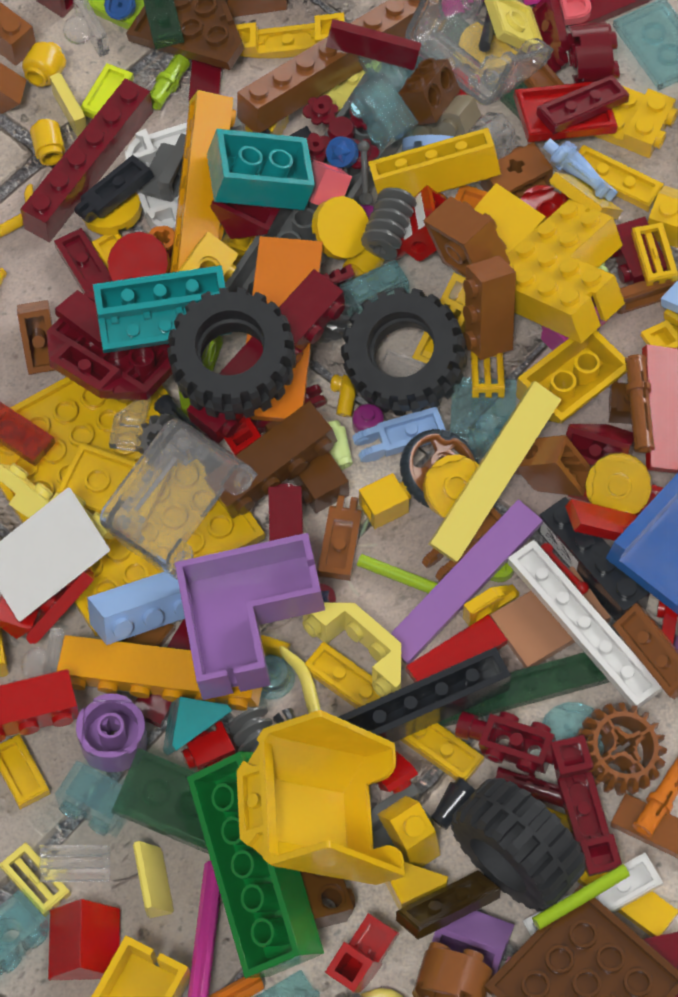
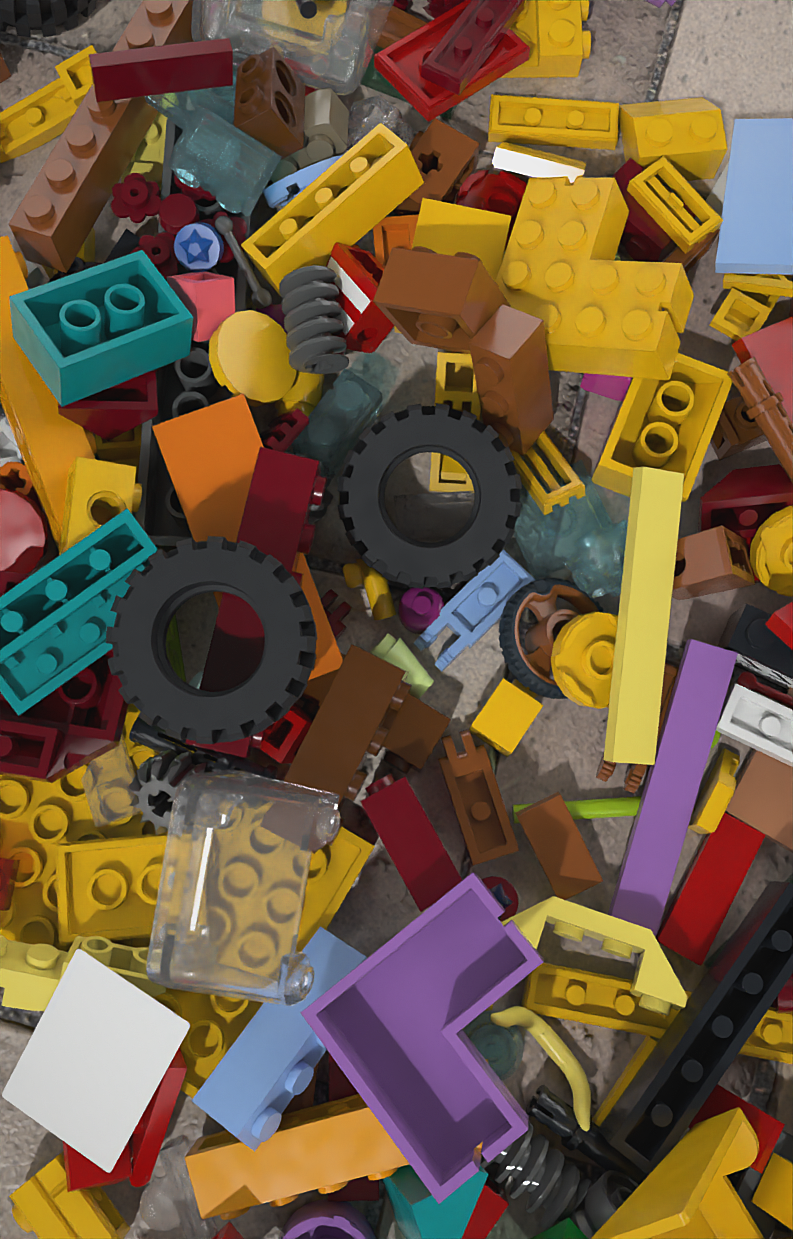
camera: 30 degrees left, 15 degrees up
(376, 585) = (559, 846): none -> dark orange tile
(571, 161) = (492, 122): light blue animal -> none

